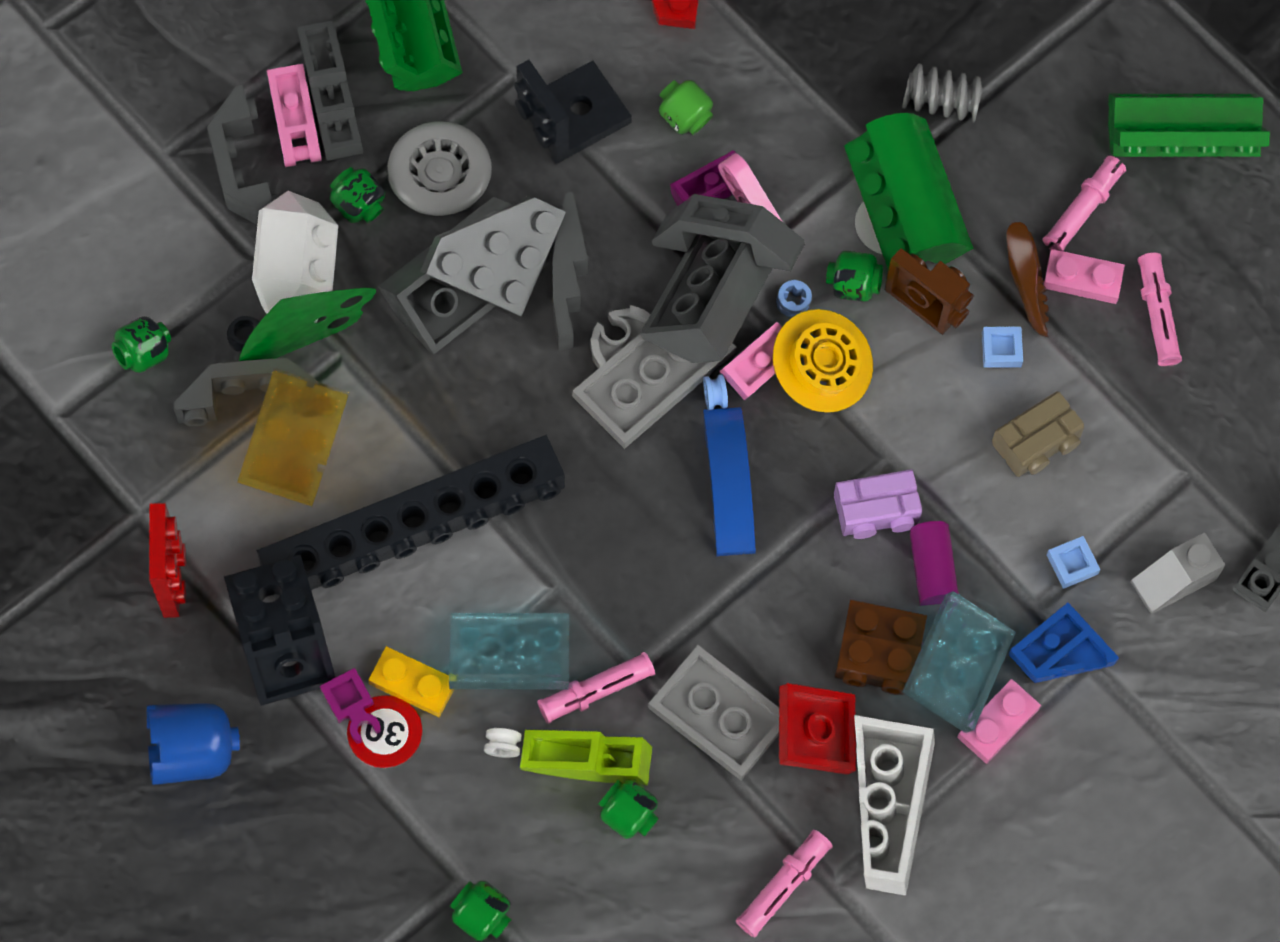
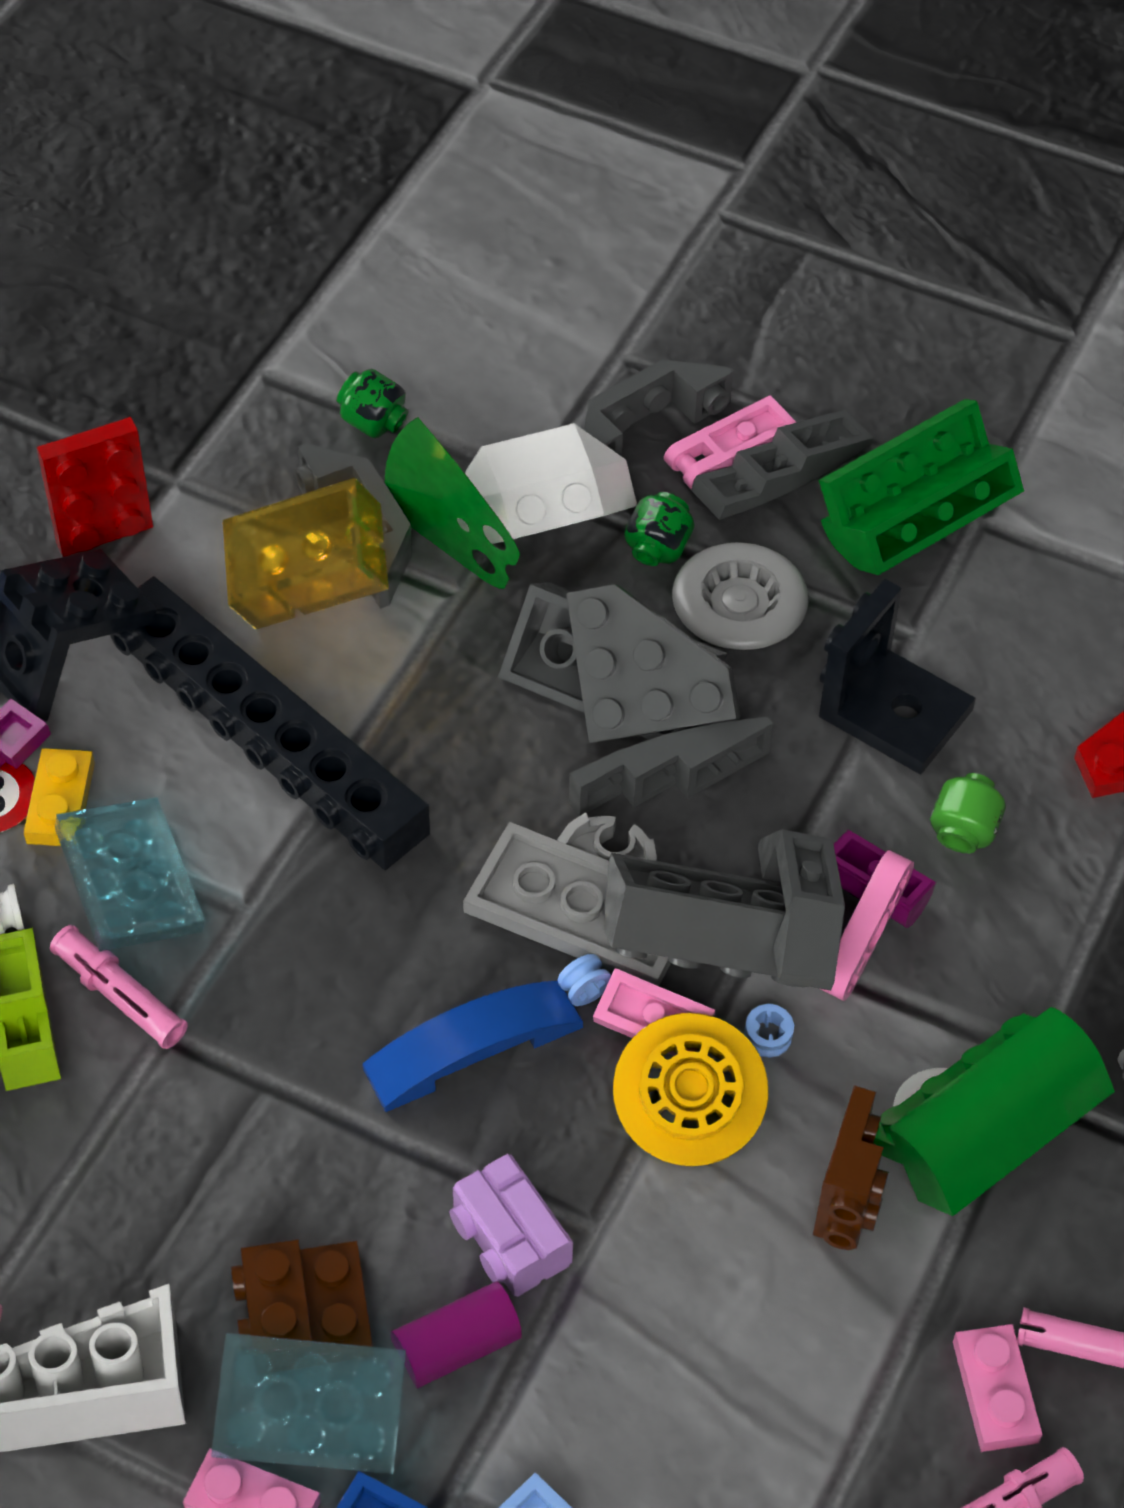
camera: 70 degrees right, 15 degrees down
(718, 712) = (132, 1138): light grey plate -> none
(817, 729) = (144, 1247): red plate -> none
(855, 276) = (826, 1081): green head -> none
(1002, 347) = (825, 1309): light blue plate -> none
(1027, 275) = (944, 1305): reddish brown animal -> none
(1038, 435) = (710, 1401): dark tan brick -> none

